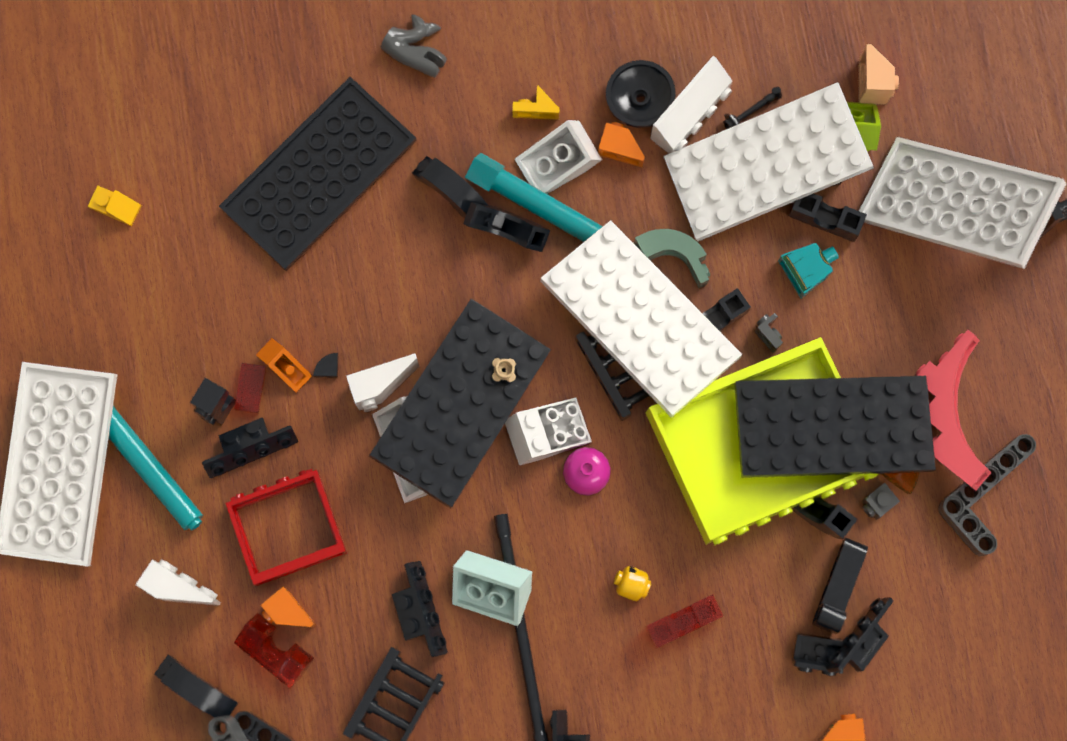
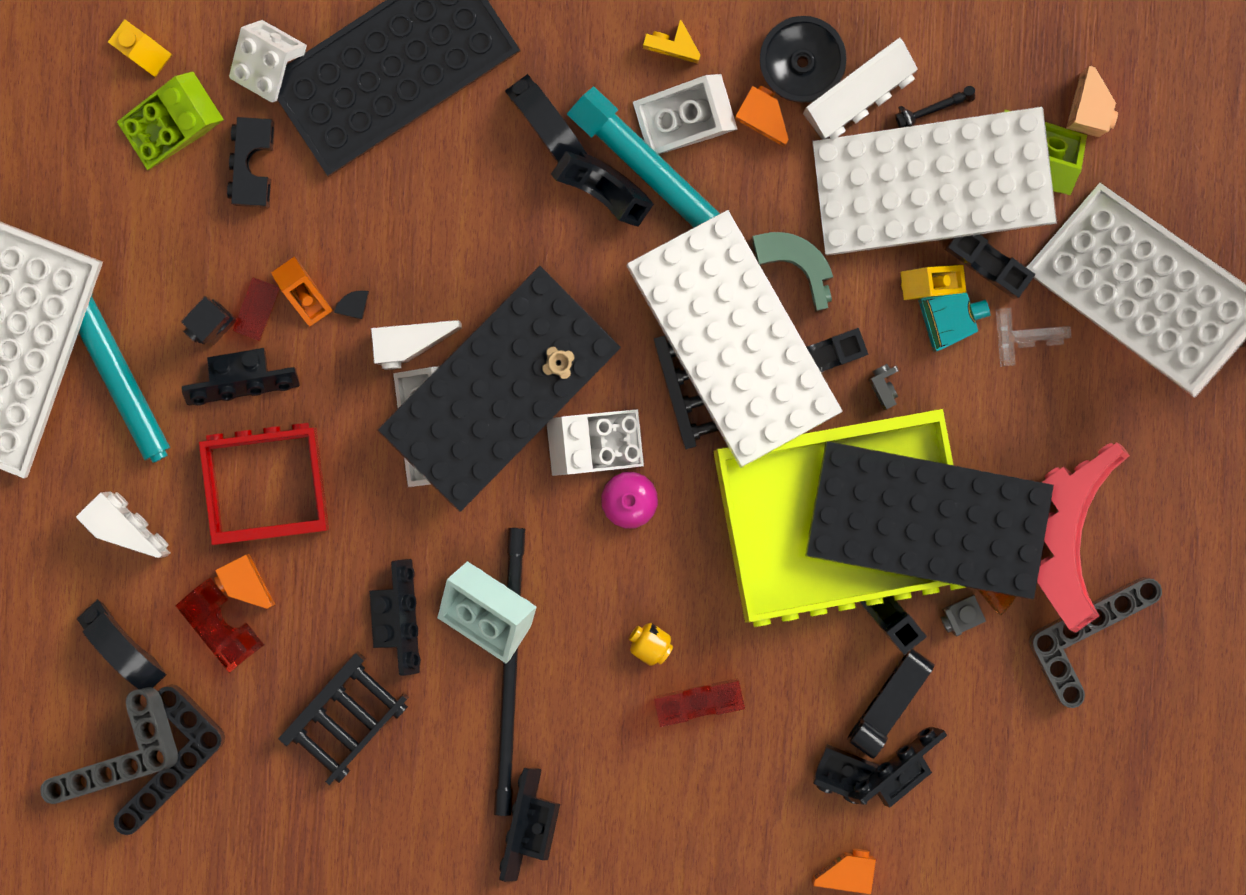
camera: 15 degrees right, 10 degrees up
(149, 254) = (170, 119): none -> lime slope
(213, 190) = (262, 58): none -> white bracket
(217, 253) = (249, 137): none -> black arch
(784, 241) = (933, 282): none -> yellow slope
(870, 269) = (1024, 338): none -> clear bracket

